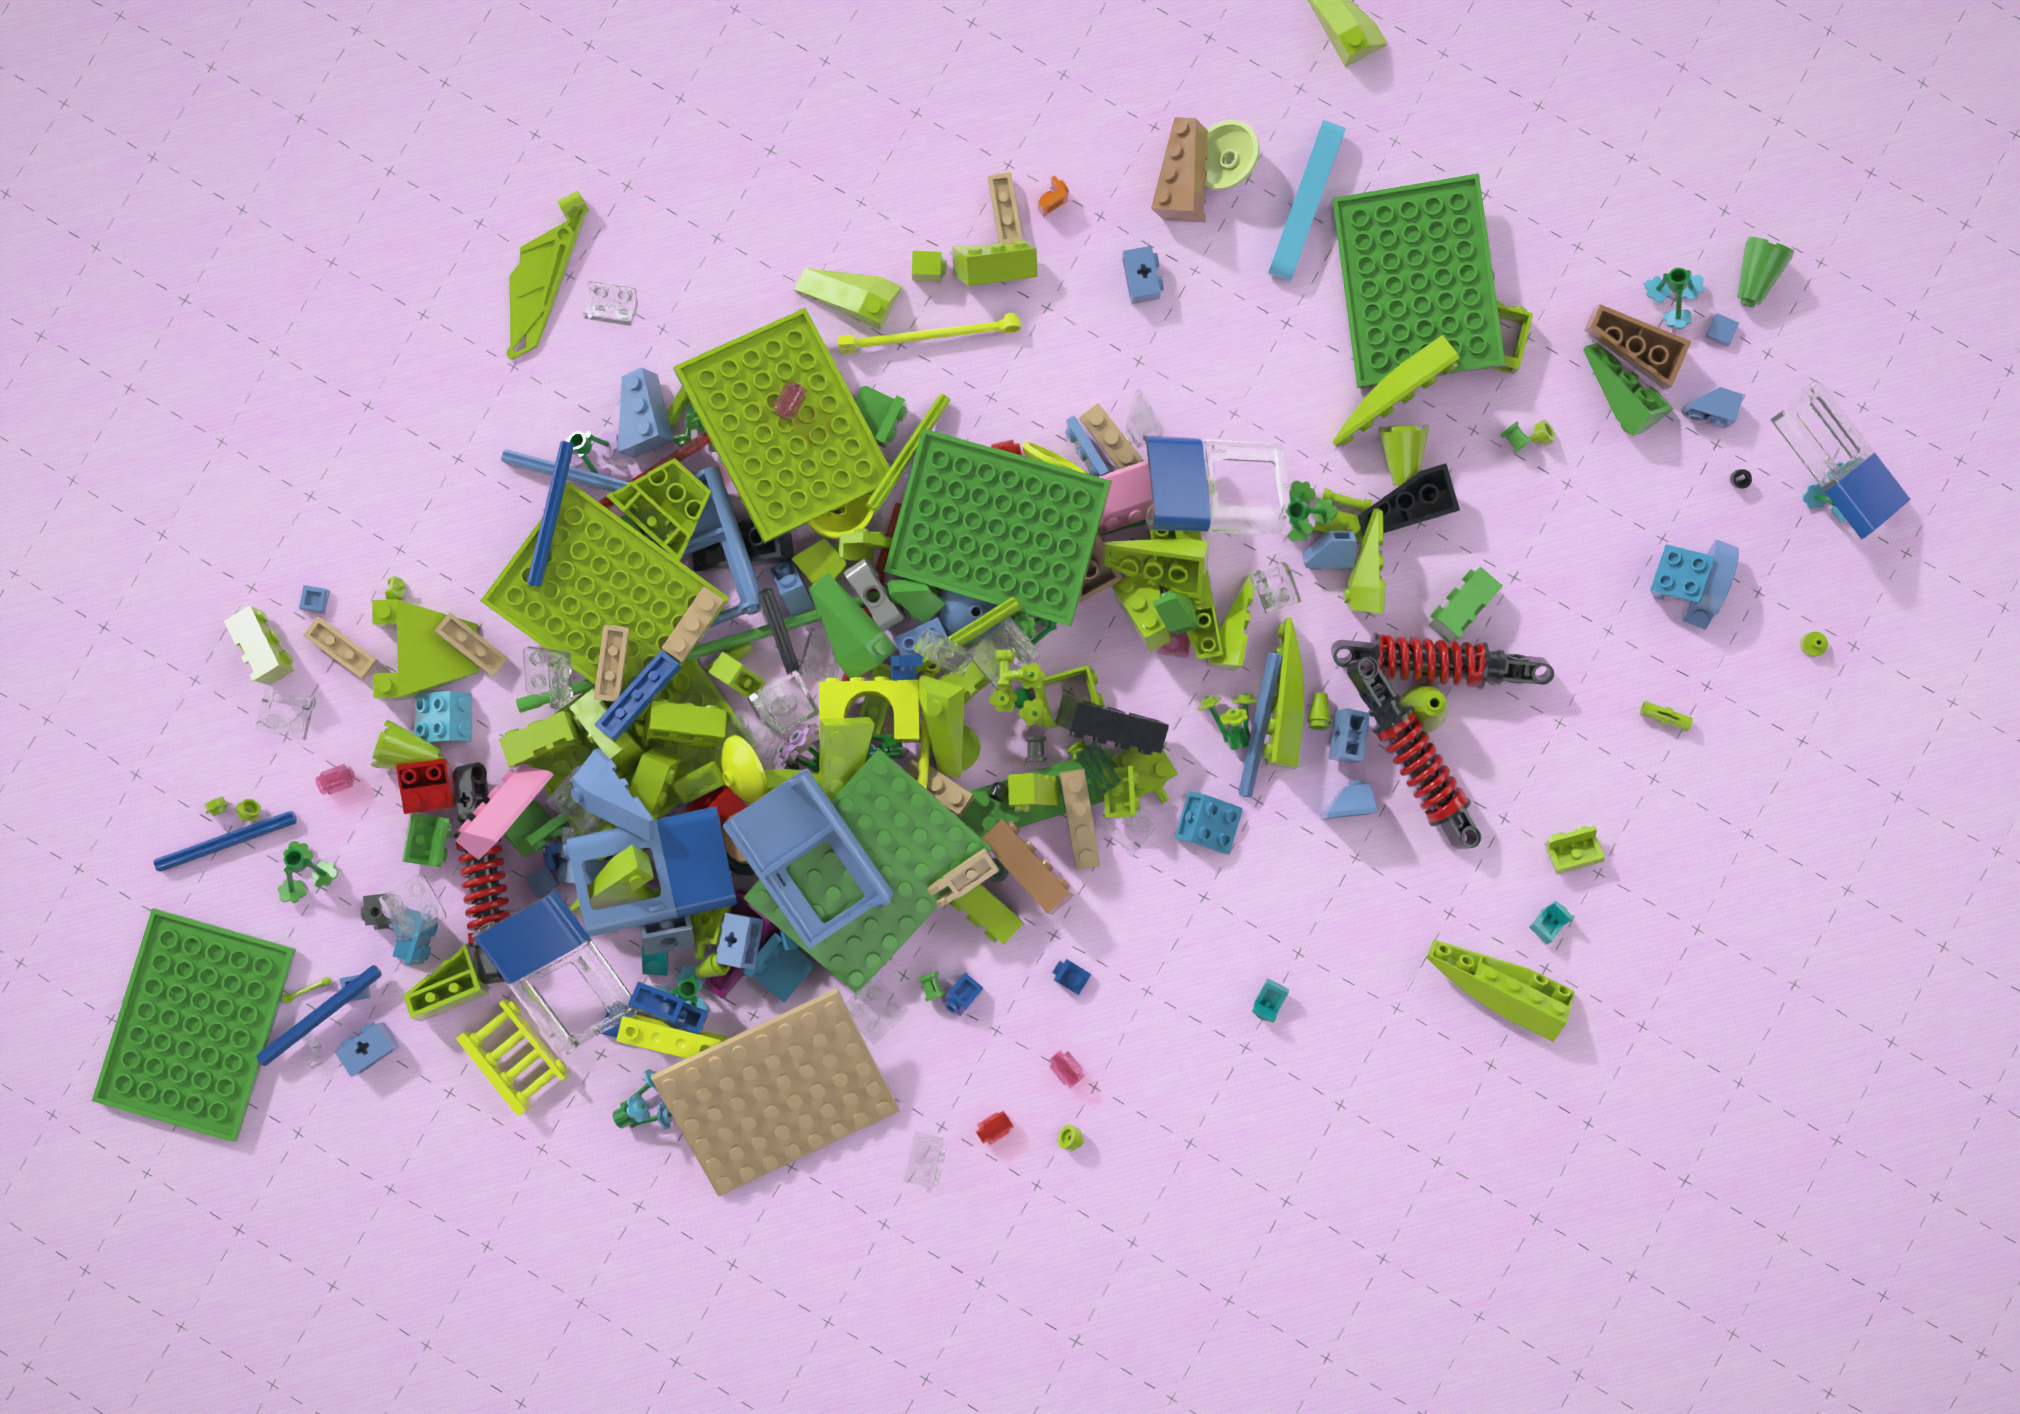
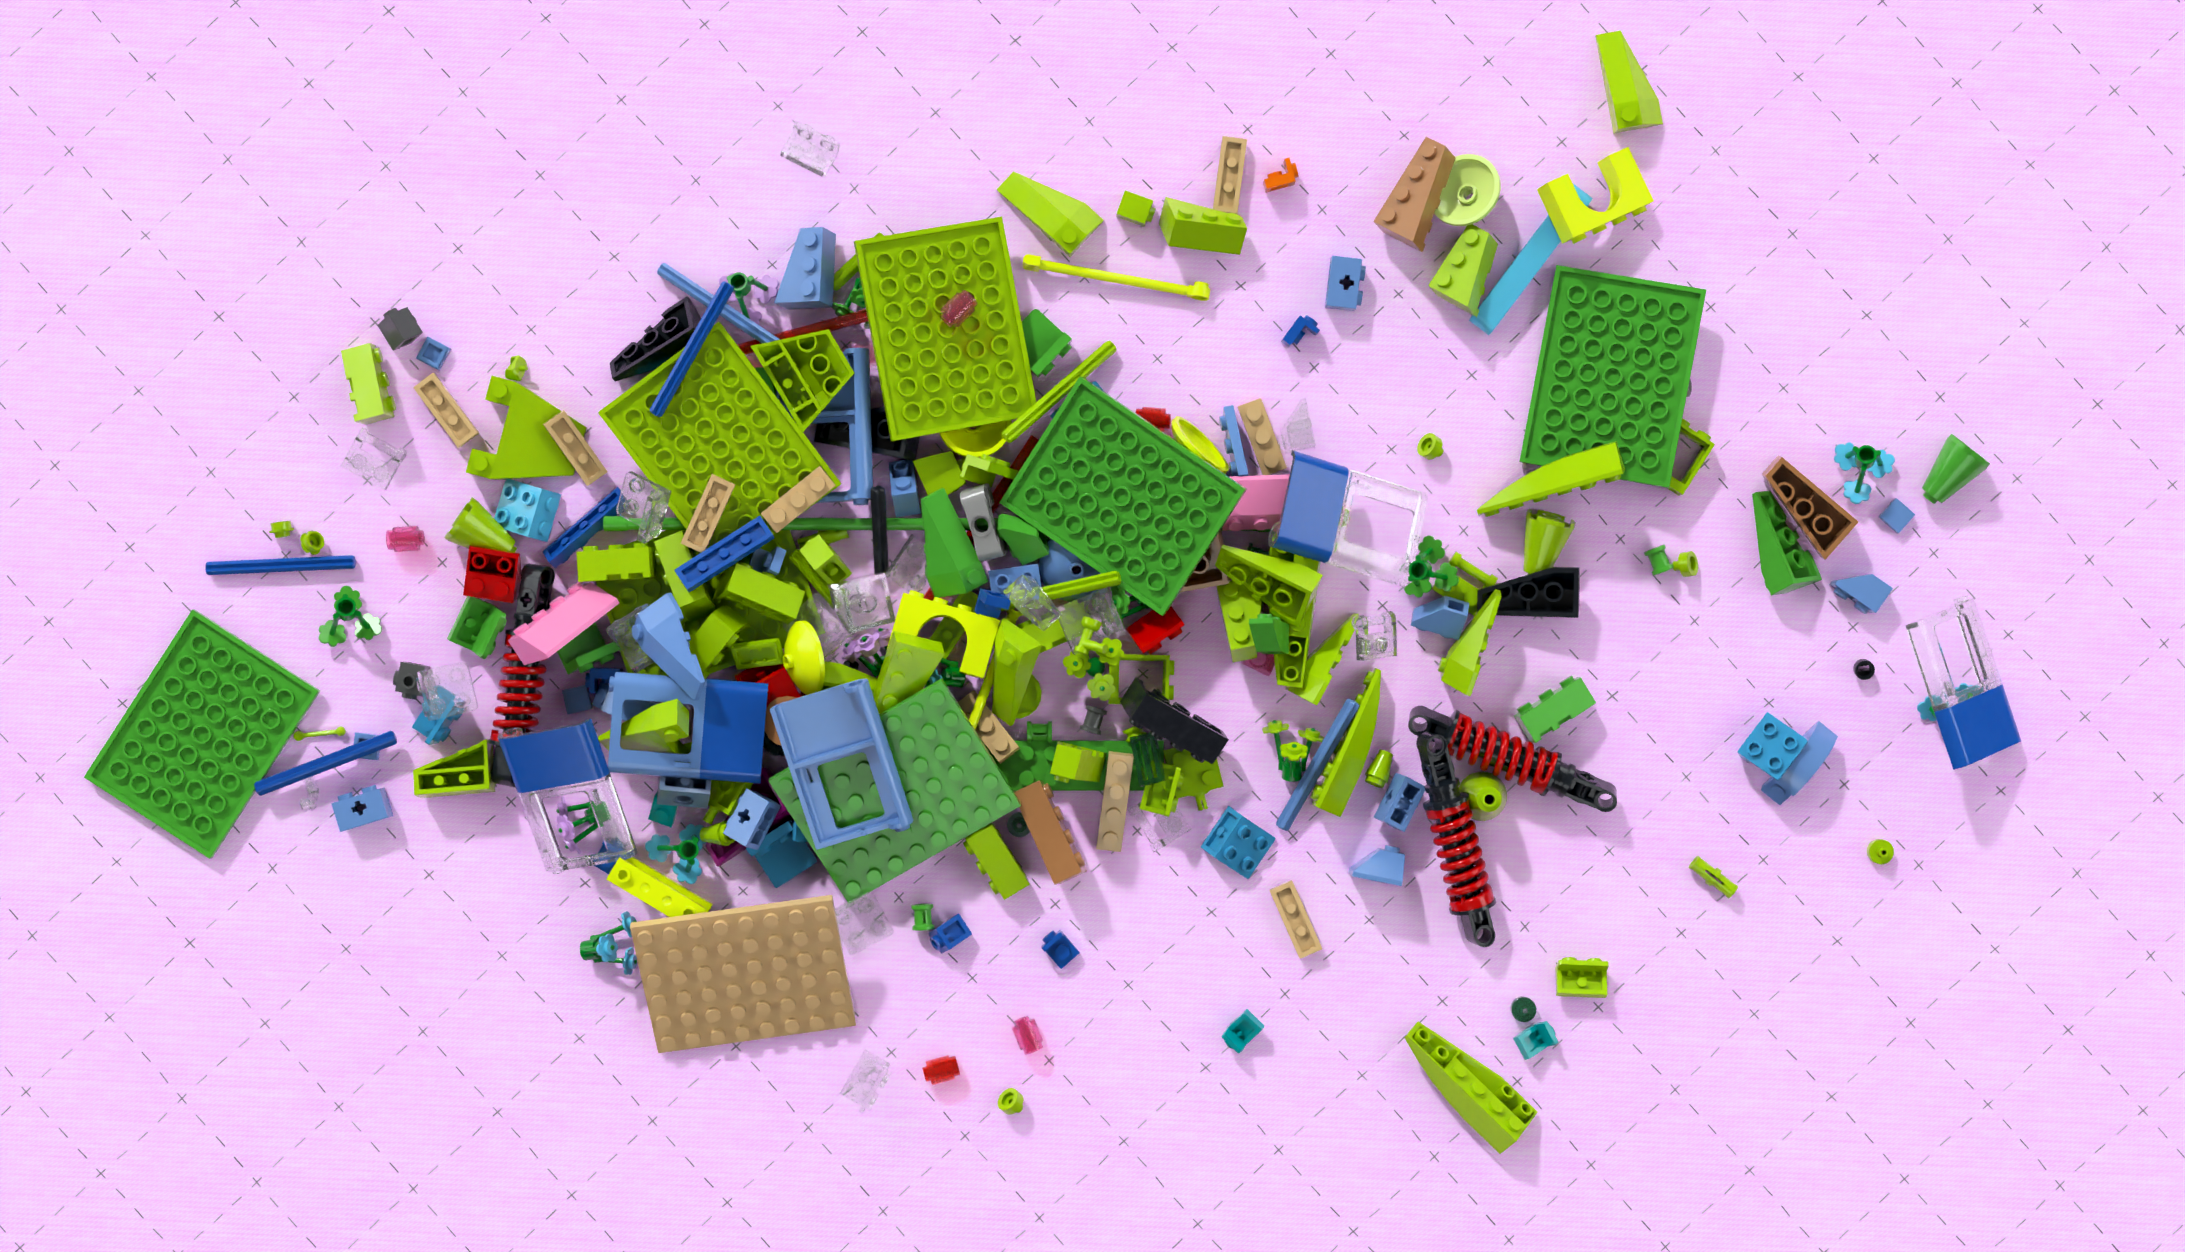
camera: 10 degrees right, 5 degrees up
(274, 584) = (399, 328): none -> dark grey brick
(488, 1061) = (475, 856): neon yellow fence -> none
(499, 723) = (582, 530): none -> blue plate
(518, 524) = (658, 343): none -> black wedge
(540, 274) = (749, 96): lime wing -> none
(564, 1004) = (566, 827): none -> plant
(566, 833) = (616, 665): clear pin -> none
(668, 1008) = (664, 862): blue slope -> none
(682, 692) = (767, 561): none -> medium blue bracket
(727, 693) = (811, 575): none -> lime axle
(964, 877) = (985, 826): tan hinge -> none
(983, 779) = (1039, 732): none -> bright green bush
(998, 792) = (1044, 751): black hinge -> none
(1066, 643) = (1154, 628): none -> red slope
(1111, 332) = (1295, 333): none -> blue bracket
(1250, 226) = (1465, 270): none -> lime wedge
(1269, 398) = (1430, 446): none -> lime tile
(1286, 878) = (1295, 919): none -> tan plate
(1336, 147) = (1574, 219): none -> neon yellow arch
(1523, 897) = (1521, 1003): none -> clear green tile

